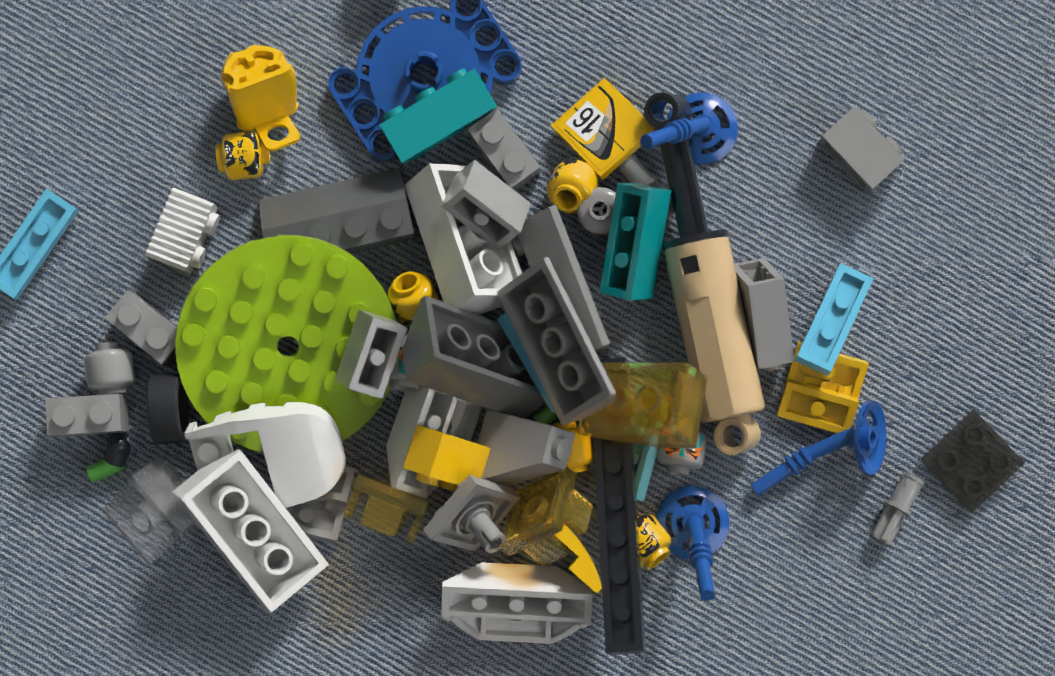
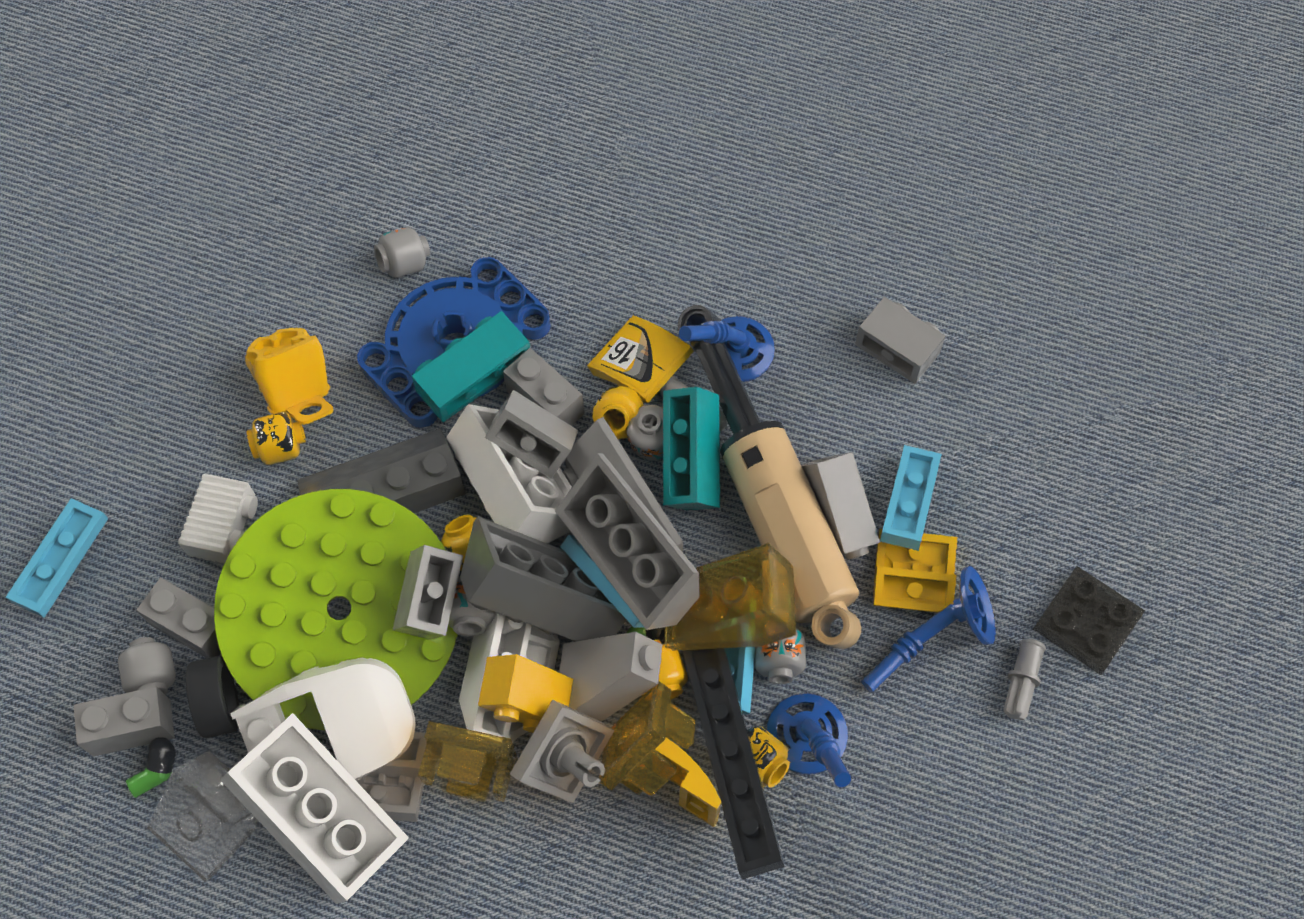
camera: 15 degrees left, 20 degrees down
(517, 603) = (628, 849): white wedge -> none

